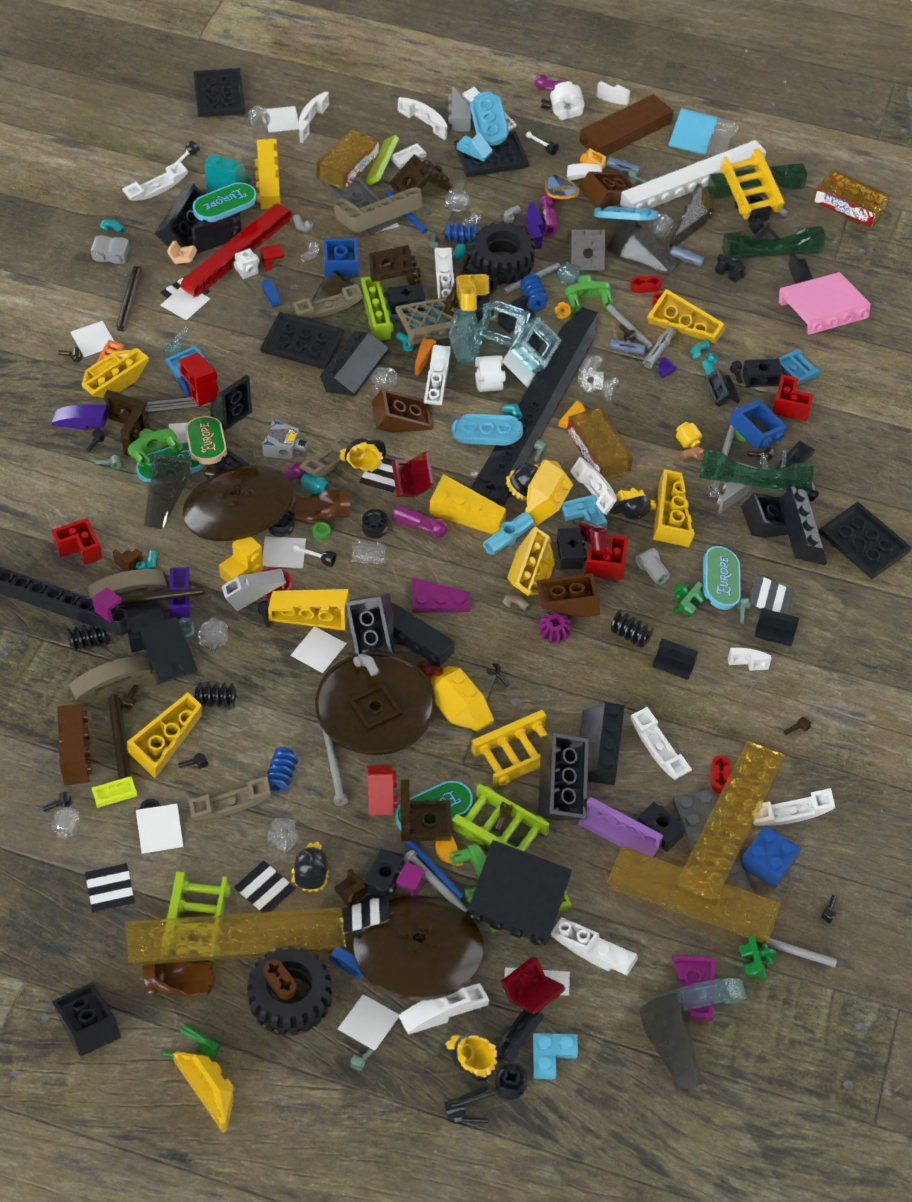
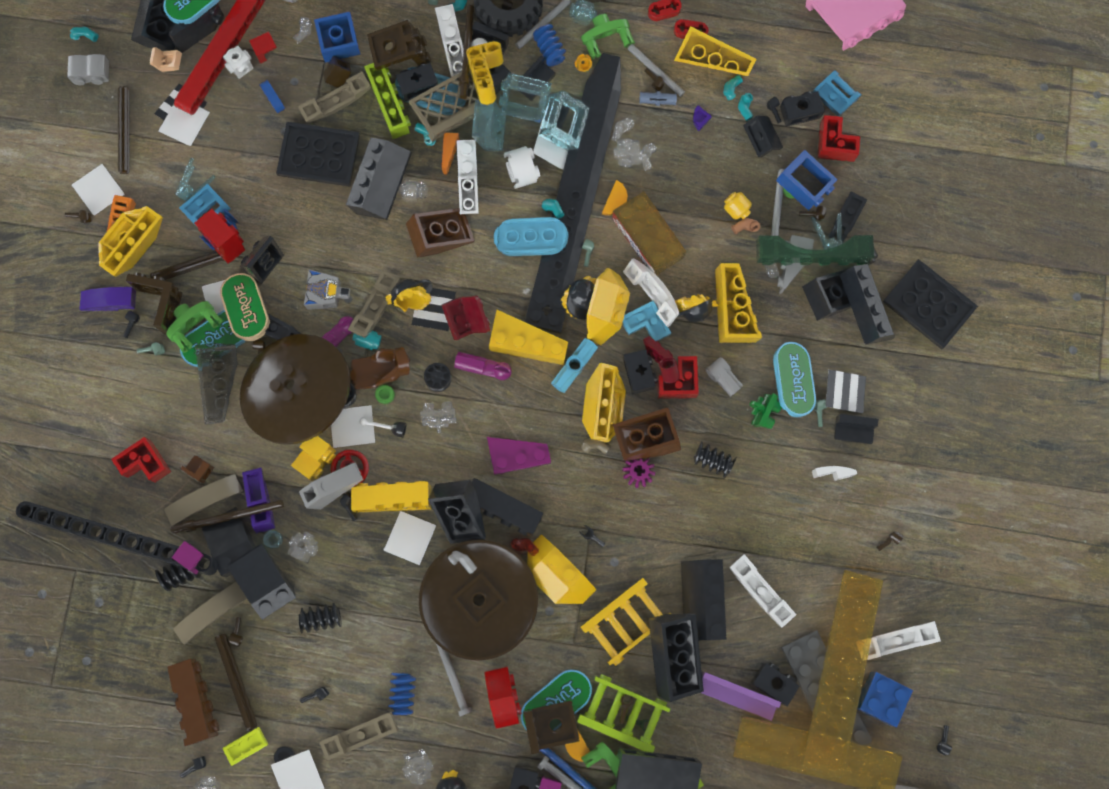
camera: 10 degrees left, 25 degrees up
(150, 563) = (221, 469): teal arm -> none
(162, 737) = (277, 682): yellow wedge -> none
(663, 342) = (697, 75): light grey pin -> none
(675, 659) = (761, 486): black panel -> none
(716, 774) = (818, 612): red beam -> none

